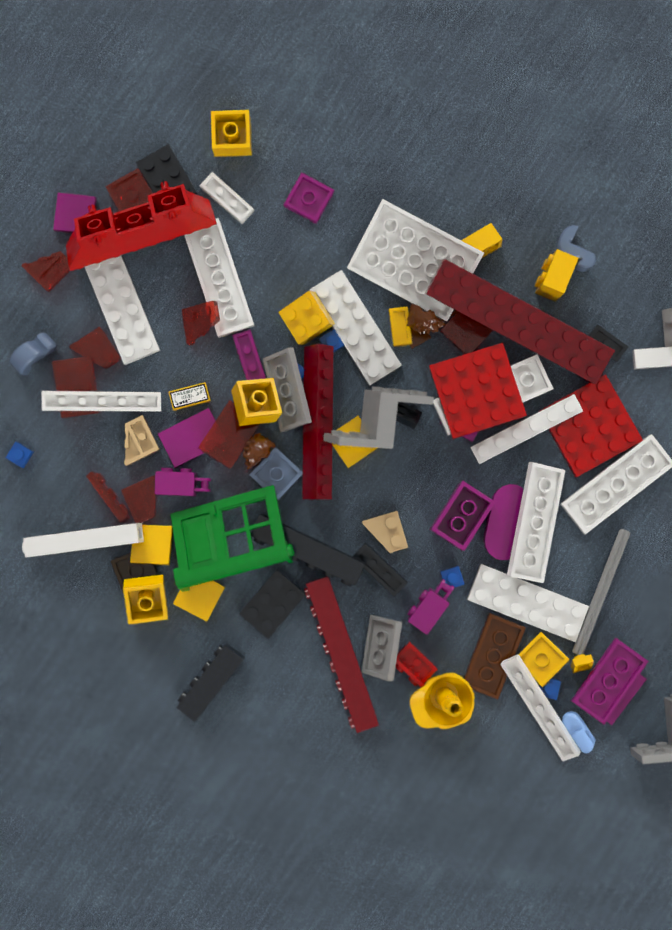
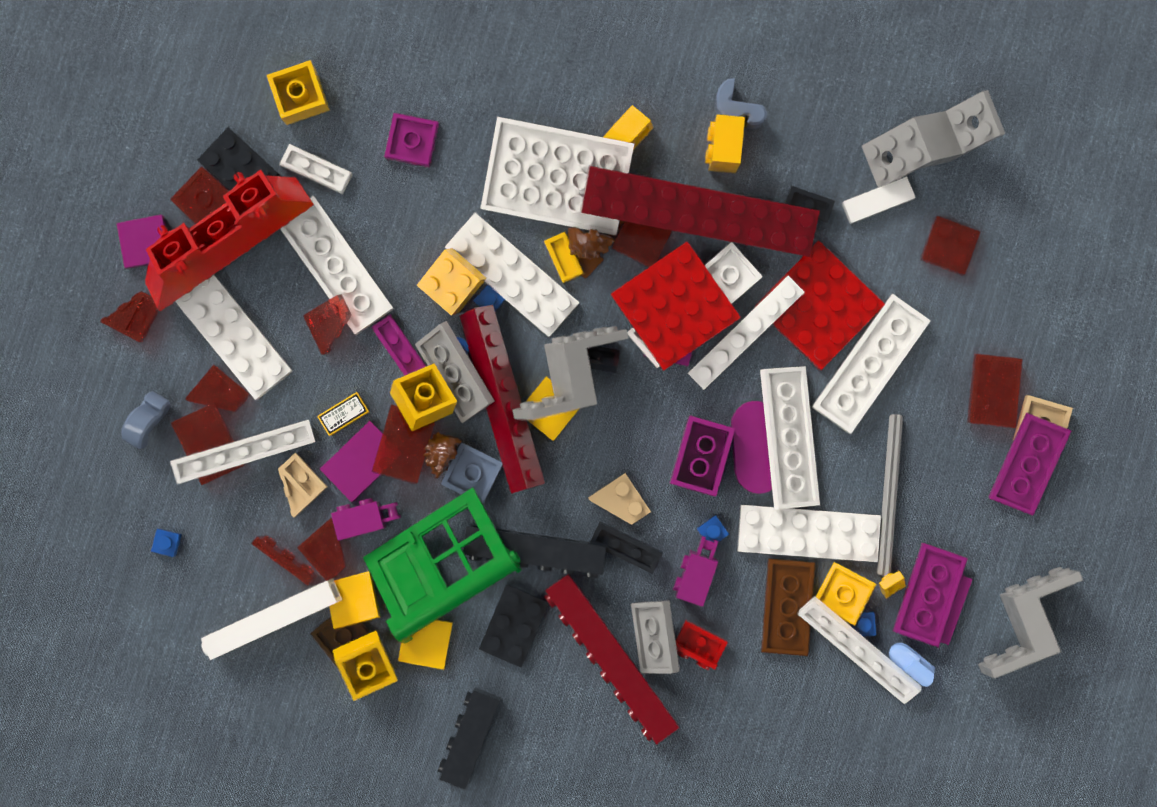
camera: 10 degrees left, 0 degrees up
(443, 702) = (744, 678): yellow piece -> none

